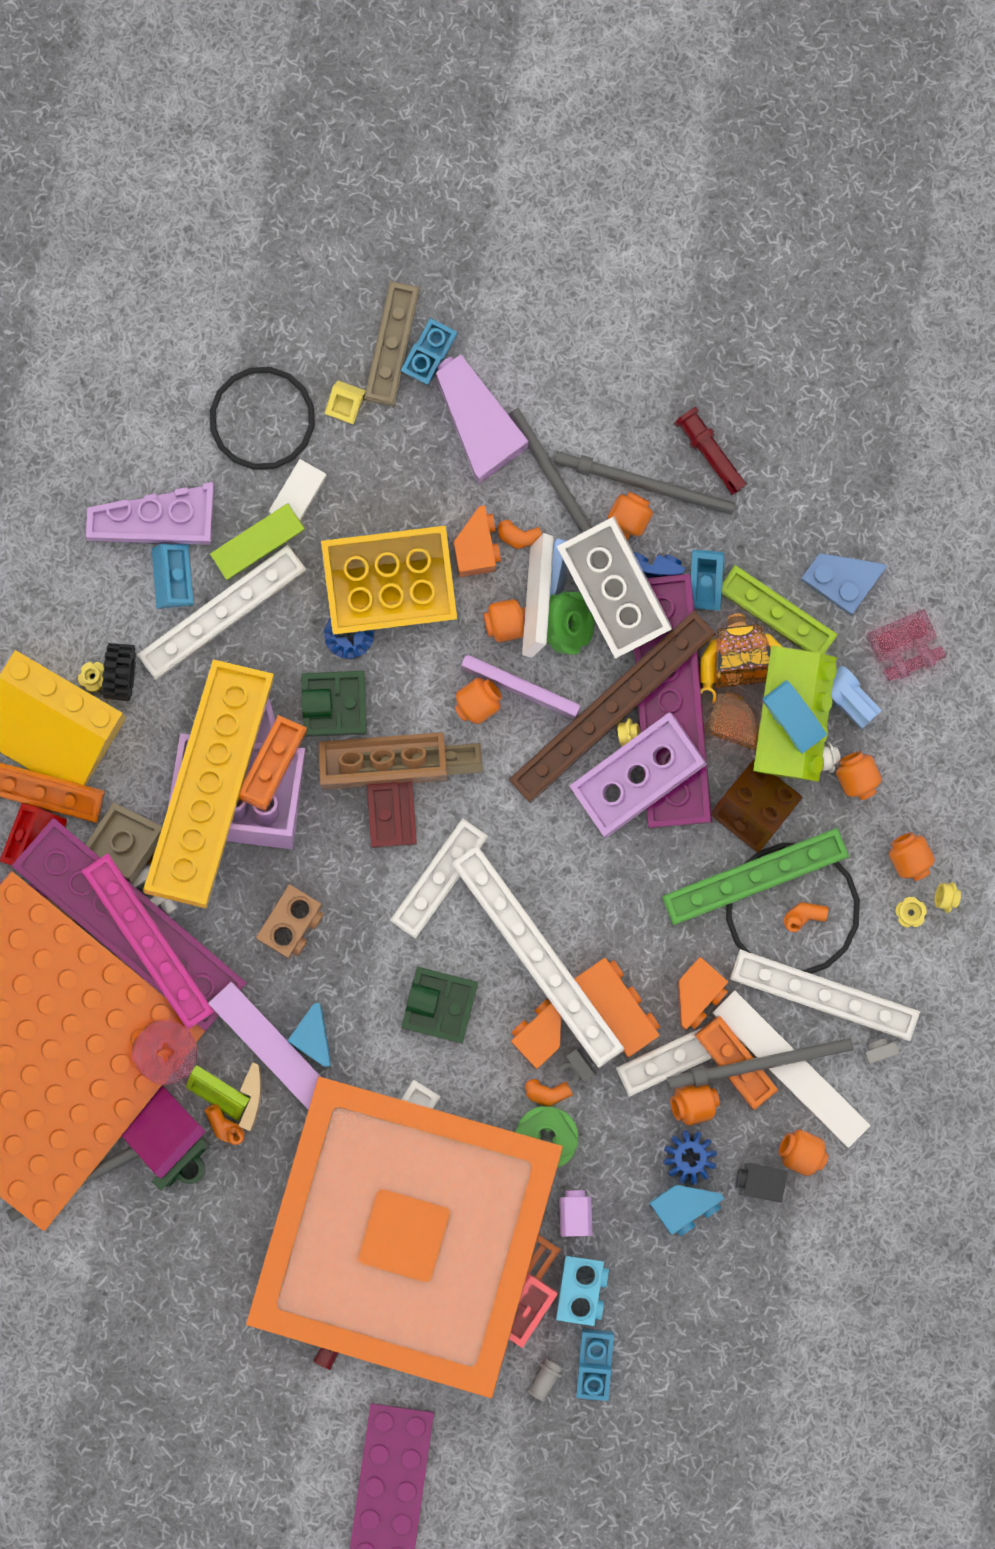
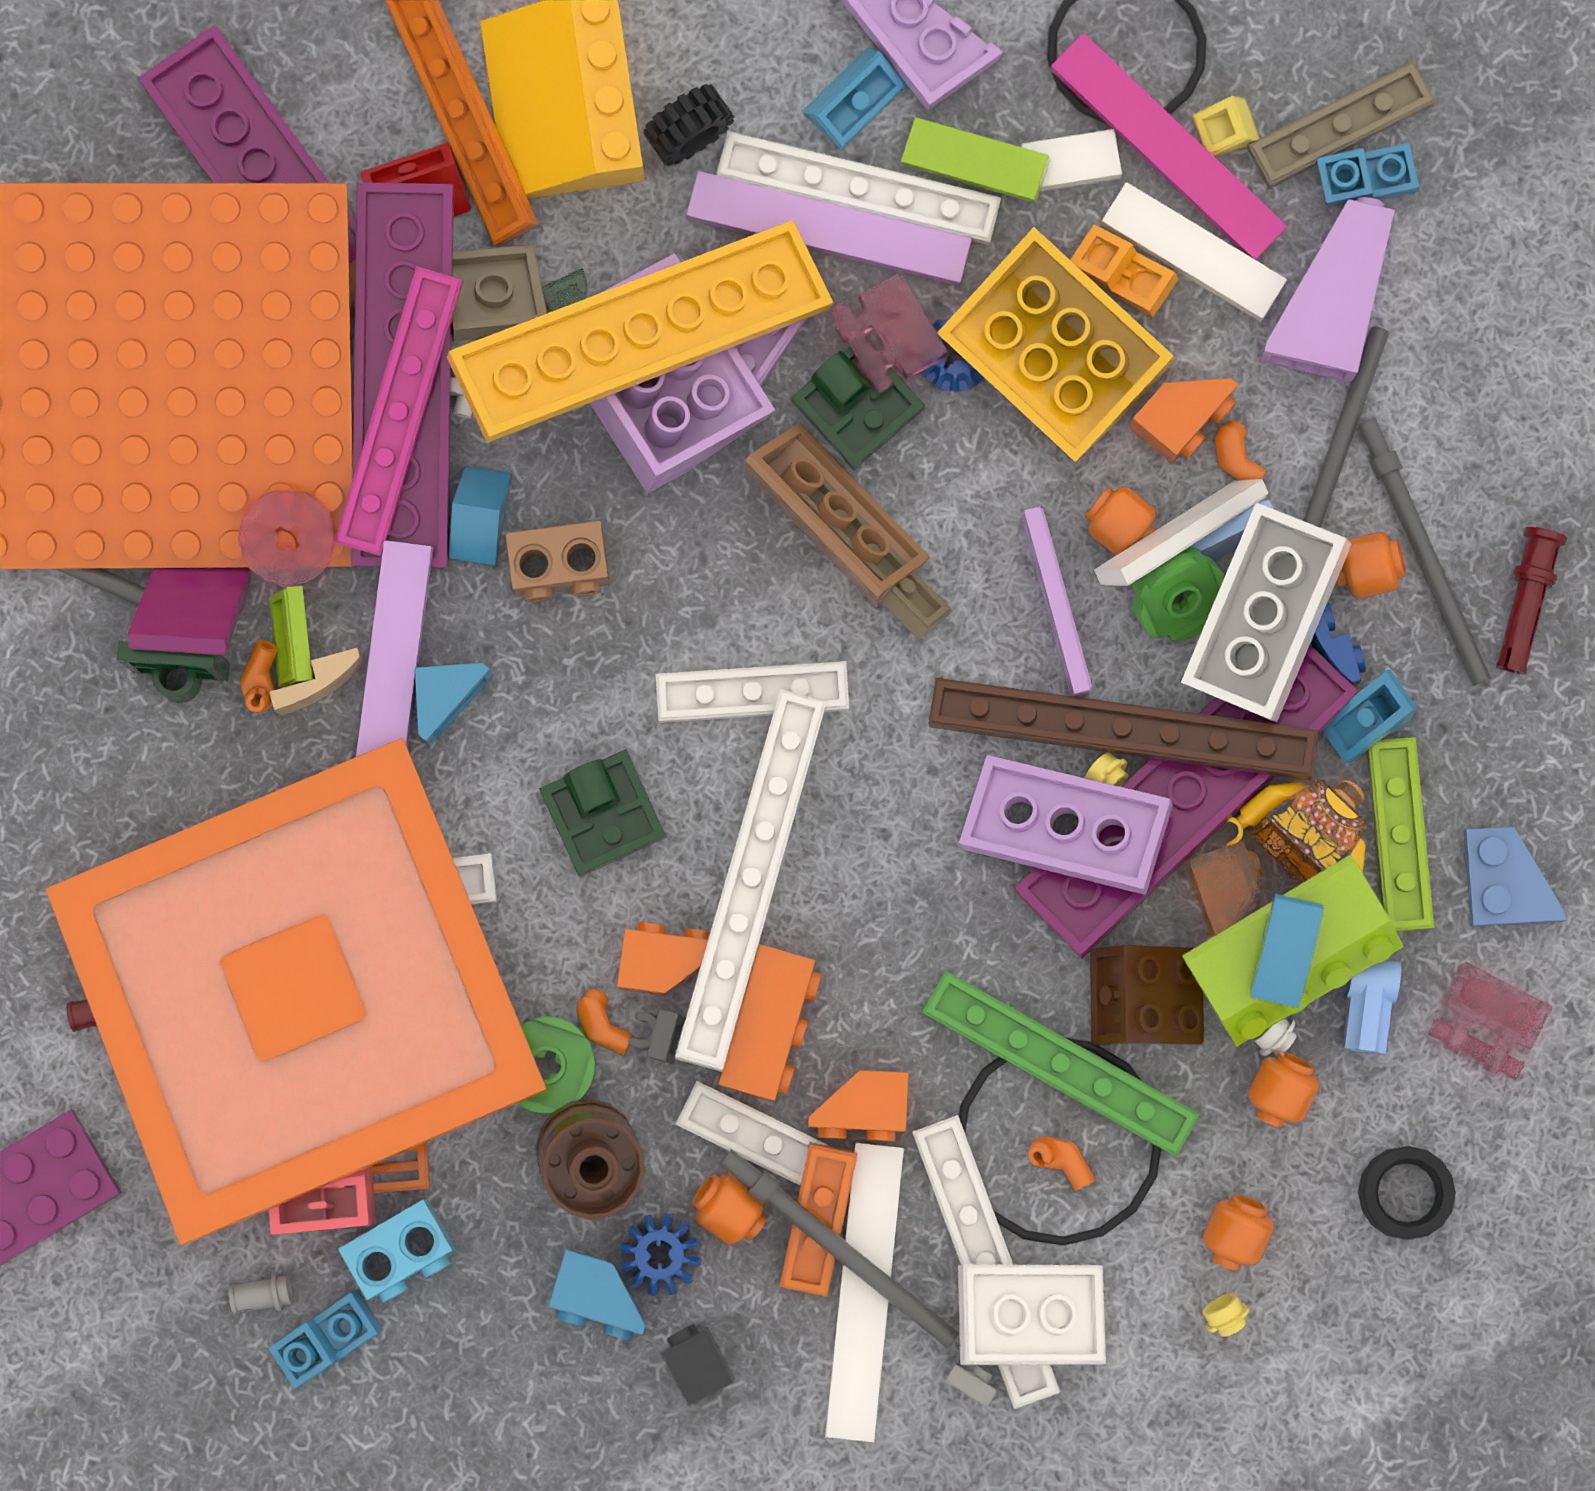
camera: 55 degrees right, 0 degrees up
(84, 679) = (652, 93): light yellow plate -> none
(154, 806) = (566, 290): none -> clear green tile
(230, 643) = (831, 228): none -> lavender tile
(232, 944) = (479, 515): none -> dark azure slope
(272, 762) = (725, 384): orange tile -> none
(312, 649) = (901, 326): none -> clear pink plate
(332, 439) = (1168, 147): none -> dark pink tile
(376, 514) = (1123, 271): none -> light orange slope
(391, 814) = (782, 575): dark red plate -> none
(396, 471) = (1193, 252): none -> white tile
(478, 700) = (999, 565): orange head -> none
(575, 1214) = (481, 1171): lavender brick -> none
(614, 1153) = (597, 1186): none -> reddish brown wheel
(803, 1152) = (775, 1386): orange head -> none
(870, 993) = (1031, 1315): none -> white tile
(917, 918) = (1183, 1289): light yellow plate -> none
(977, 742) = (1442, 1182): none -> black tyre

